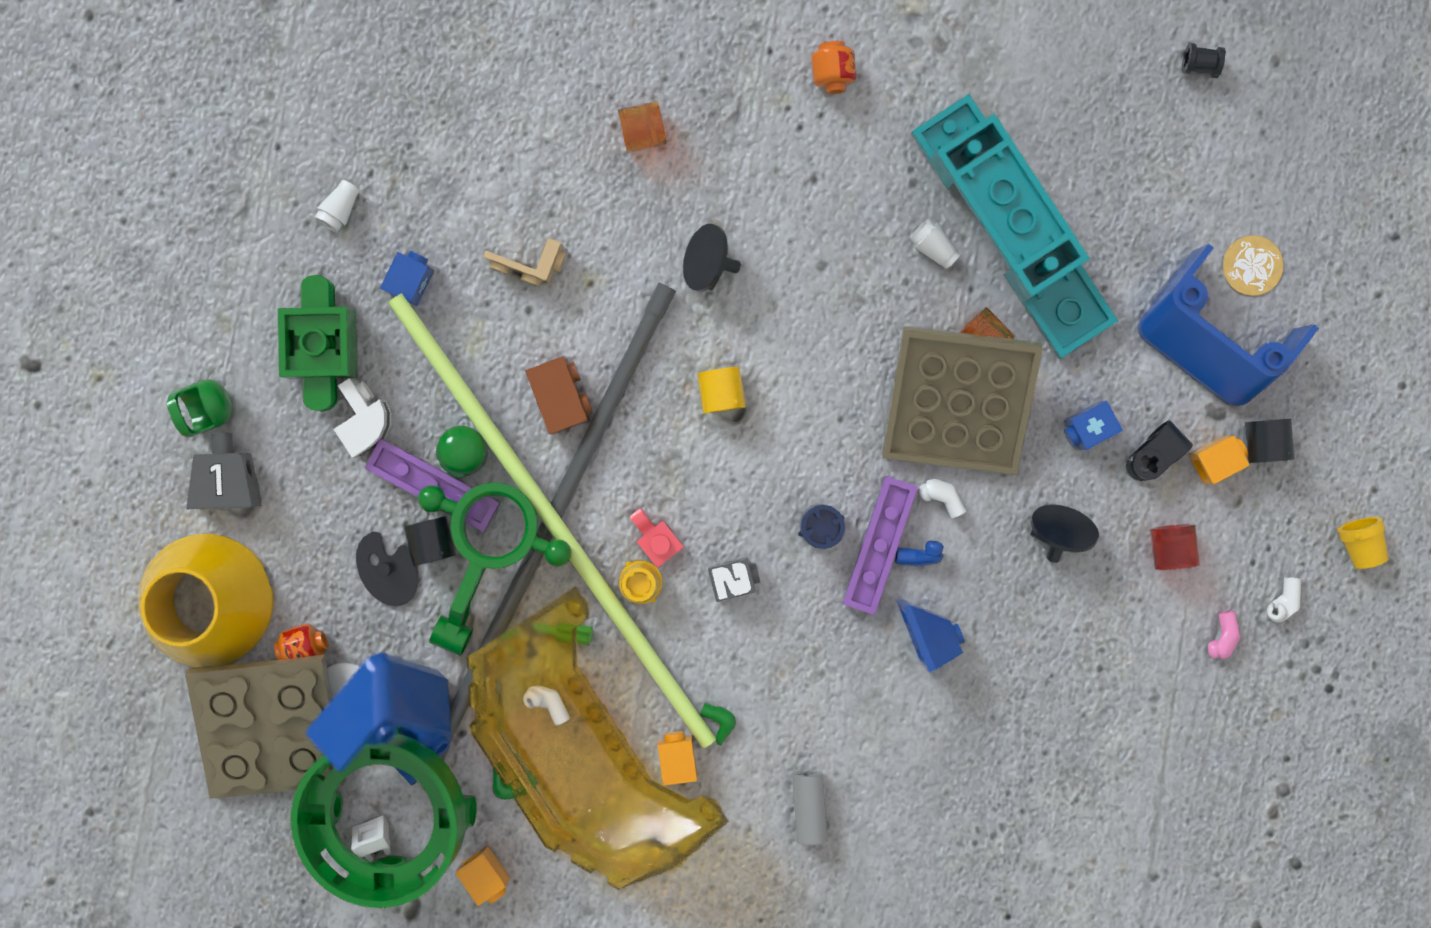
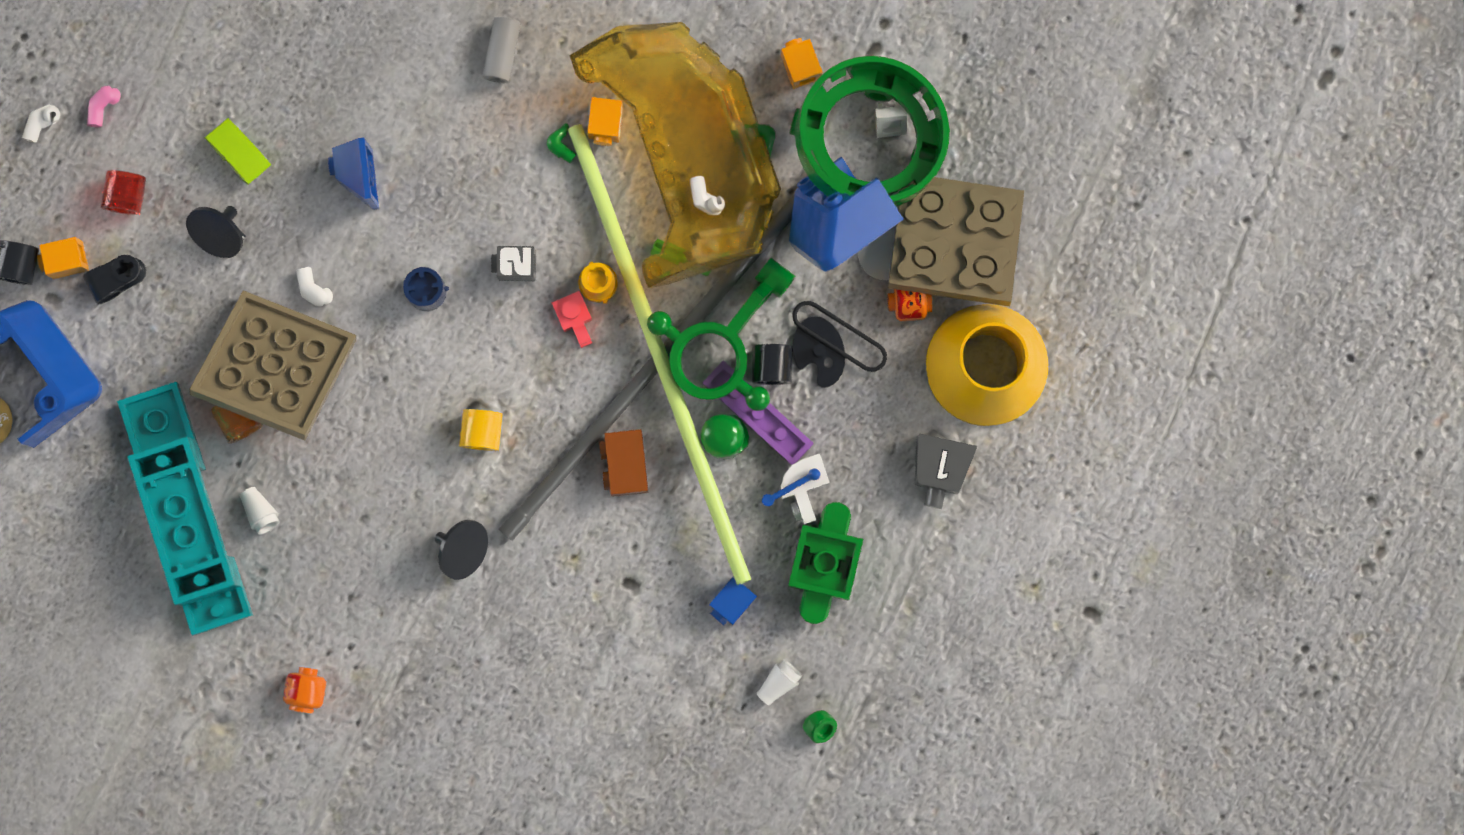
camera: 165 degrees left, 5 degrees down
(207, 406) = (943, 533): green helmet -> none
(281, 170) = (820, 726): none -> green tile
(373, 577) = (851, 328): none -> black piece
(393, 393) = (768, 500): none -> blue hinge
(550, 261) = (600, 584): tan bracket -> none
(642, 126) = (488, 681): clear orange piece -> none
(879, 545) = (379, 260): medium lavender plate -> none
(919, 557) = (349, 241): blue arm -> none
(1064, 623) = (238, 151): none -> lime slope
(1092, 426) = (165, 315): blue brick -> none

